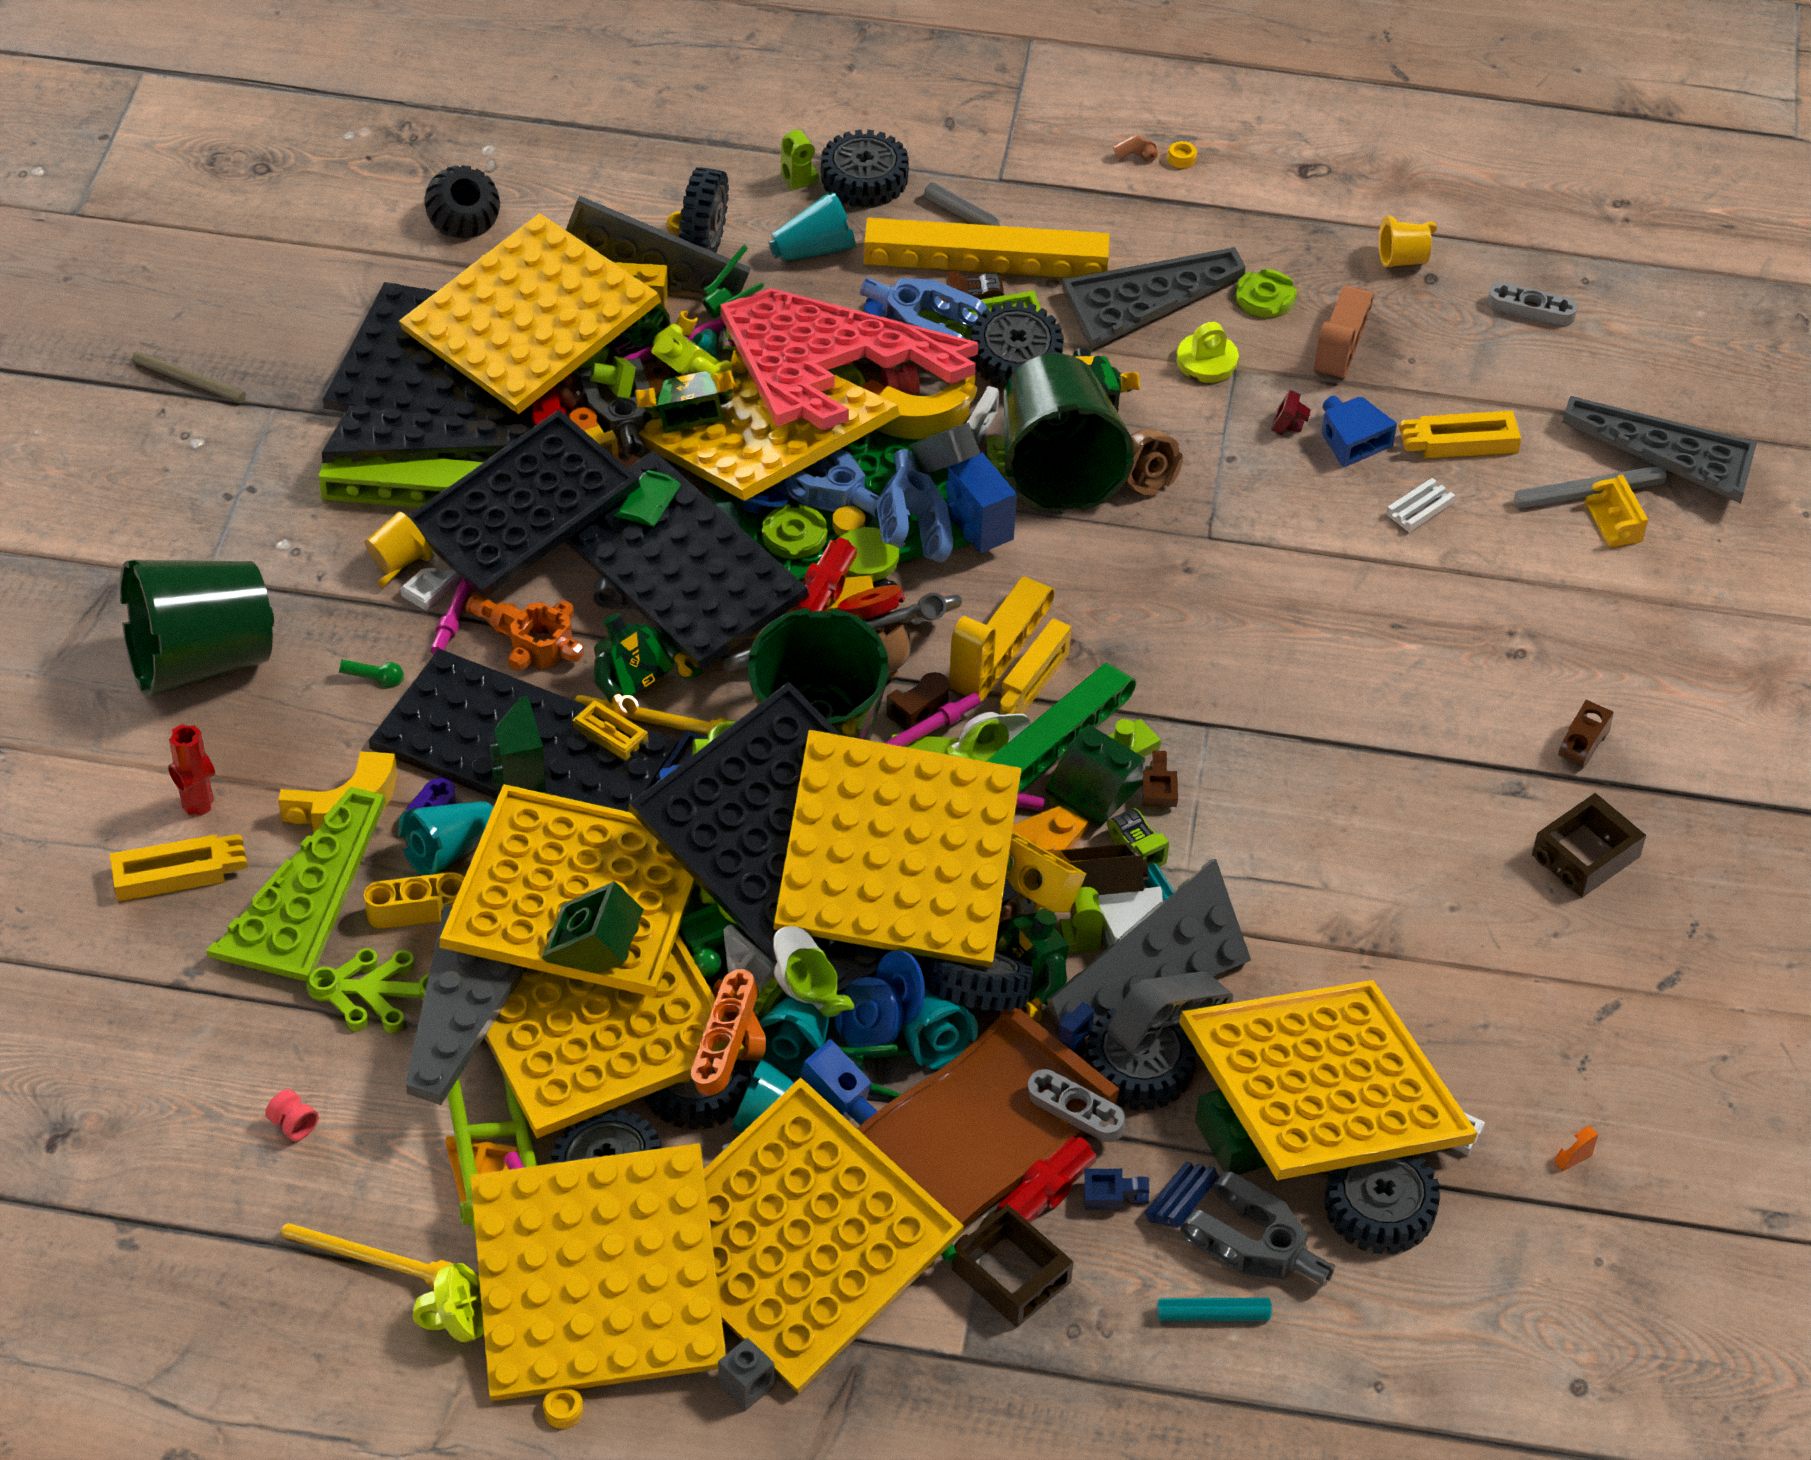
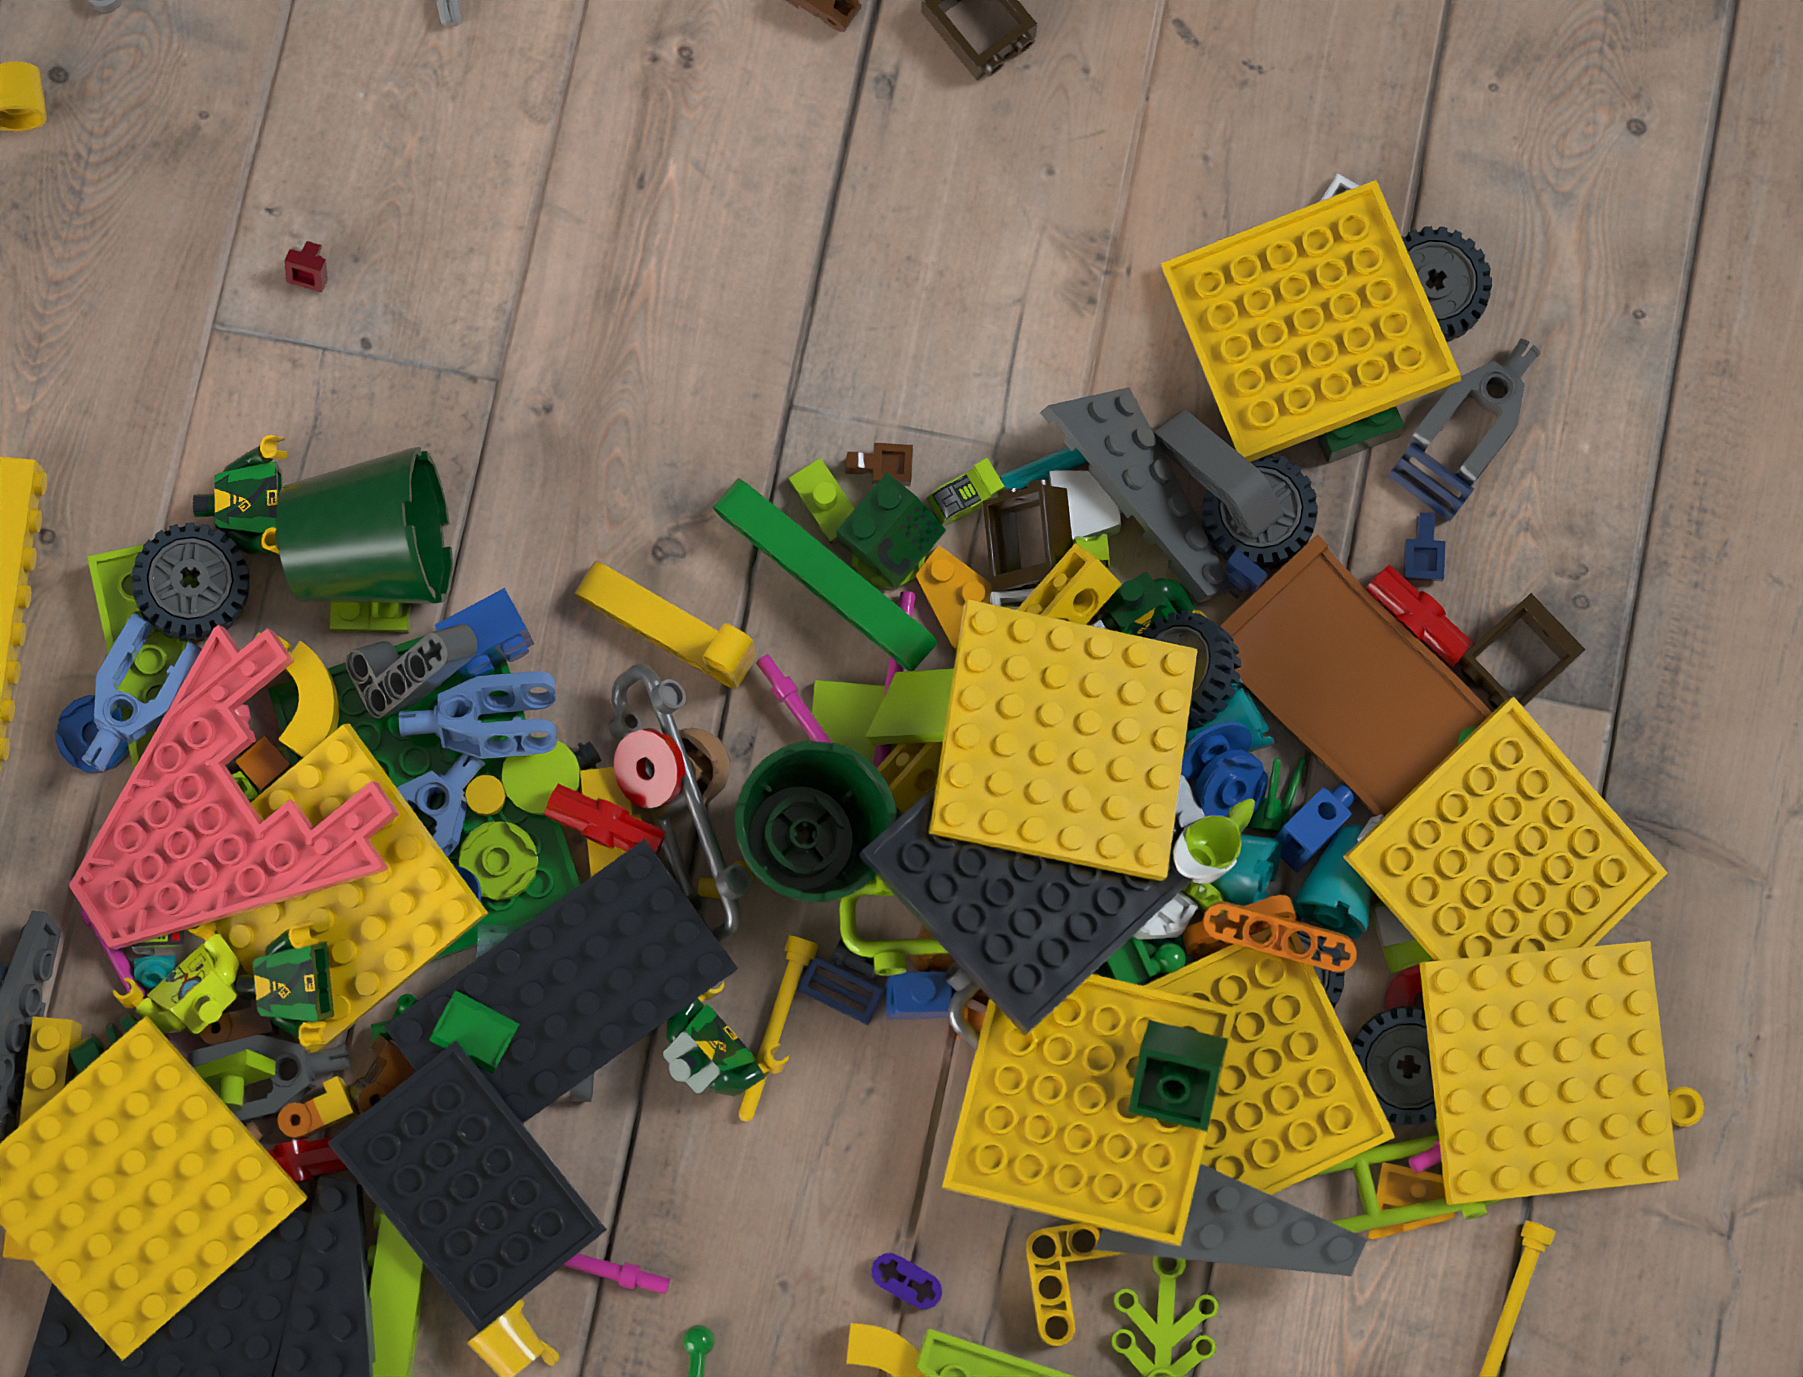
camera: 85 degrees left, 30 degrees up
(429, 586) = (559, 1304): white tile -> none
(442, 834) = (961, 1255): teal cone -> none
(451, 719) = (812, 1178): black plate -> none
(456, 1301) = (1586, 1215): neon yellow tile -> none
(518, 623) = (632, 1194): orange piece -> none
(518, 750) = (870, 1174): dark green slope -> none
(606, 733) = (832, 1048): yellow tile -> none
(716, 296) = (83, 951): green plant -> none
(746, 1374) = (1655, 921): dark grey brick -> none
(919, 701) = (754, 711): reddish brown leg -> none
(982, 287) = (73, 632): leg -> none
(984, 413) = (304, 632): white tile -> none
(987, 735) = (828, 658): lime hair -> none
(1035, 668) = (724, 592): yellow hinge -> none
(1082, 1120) = (1341, 549): light grey beam -> none
(1129, 297) = (85, 437): dark grey wing -> none
(1155, 461) = (388, 430): medium nougat cylinder -> none
(1207, 354) = (196, 355): neon yellow tile -> none
(1214, 1309) = (1561, 462): teal axle -> none
(1266, 293) = (82, 275): lime tile -> none
(1343, 332) = (199, 199): nougat beam -> none
(1356, 429) = (334, 193): blue torso -> none
(1416, 501) = (436, 108): white tile -> none
(1462, 434) = (342, 62): yellow hinge -> none
(1579, 1150) = (1372, 88): orange tile -> none

